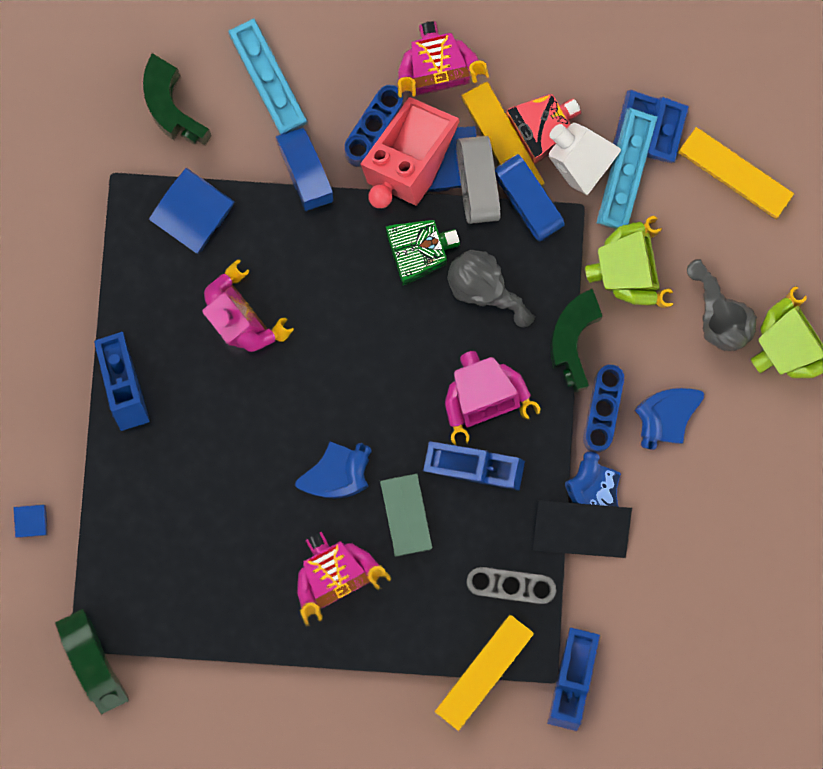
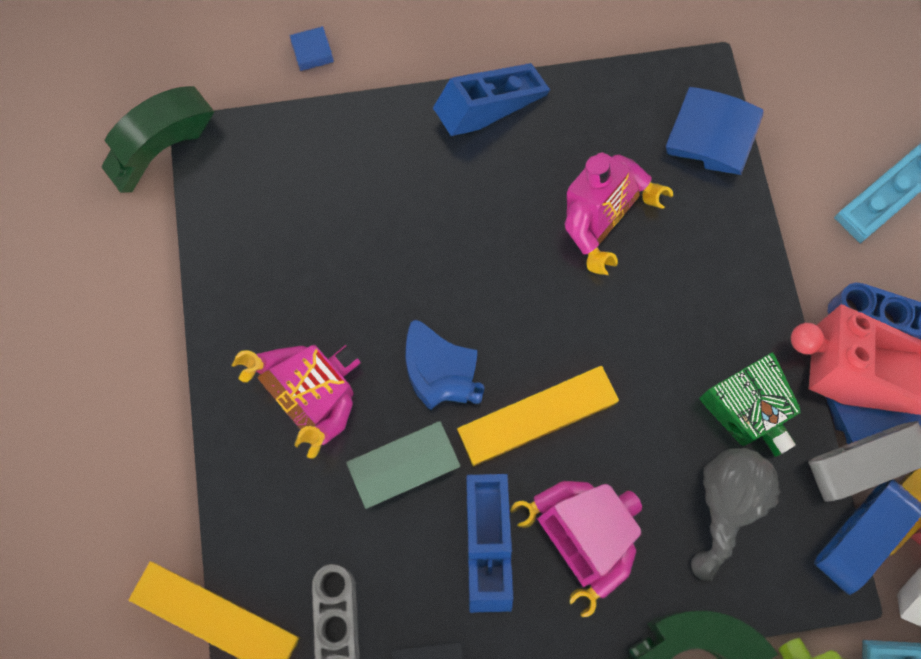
camera: 80 degrees right, 10 degrees down
(158, 90) = (839, 69): dark green arch -> none
(305, 169) = (805, 245): blue slope -> none
(390, 408) = (537, 416): none -> yellow tile

